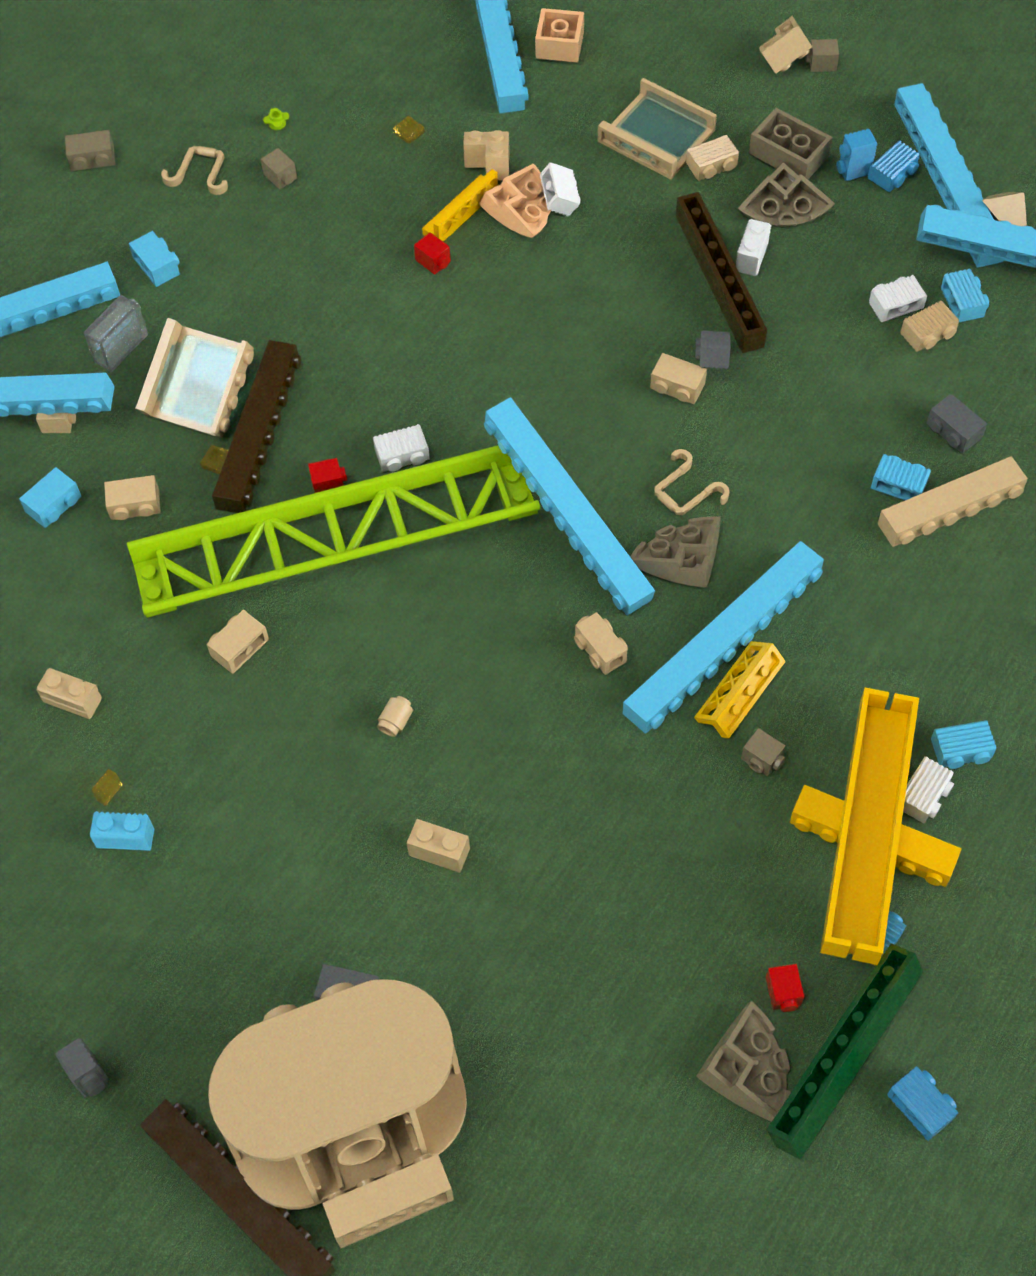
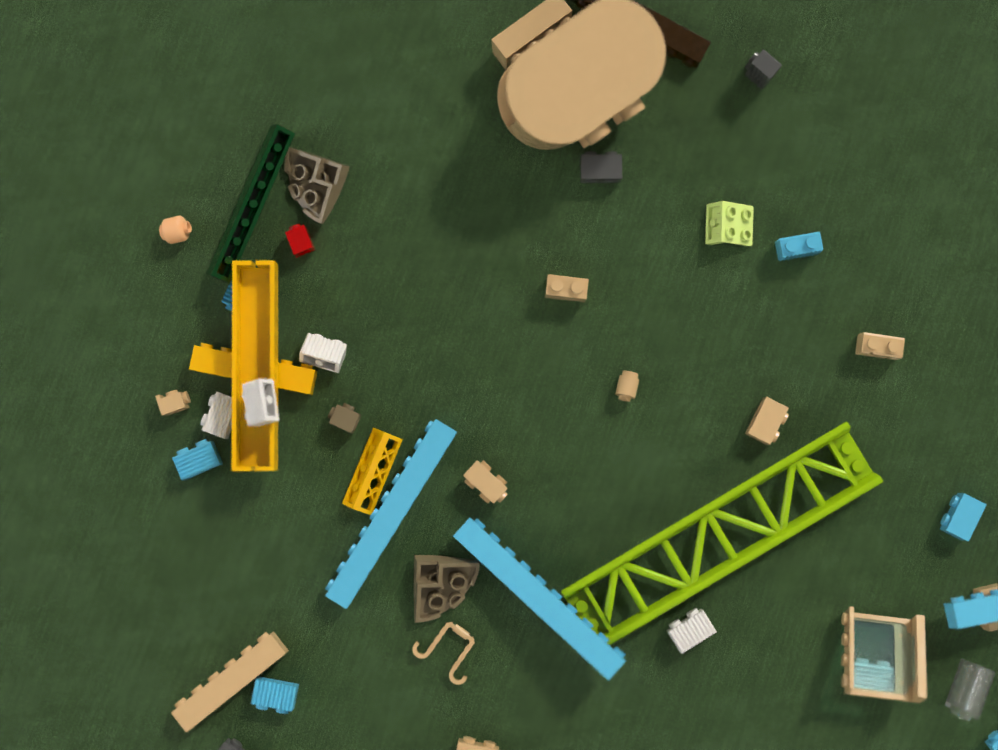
camera: 165 degrees right, 25 degrees up
(106, 787) = (823, 278): clear yellow tile -> none
(132, 497) = (896, 531): tan brick -> none
(202, 880) = (729, 223): none -> yellowish green bracket
(214, 459) = (840, 588): clear yellow tile -> none
(256, 427) = (818, 627): dark brown brick -> none
(326, 475) = (743, 588): red brick -> none
(777, 835) = (323, 352): none -> white brick
(870, 762) = (260, 402): none -> white brick
(923, 1102) = (195, 181): dark azure brick -> none
(959, 1041) = (175, 229): none -> light nougat head
(988, 818) = (173, 402): none -> tan brick

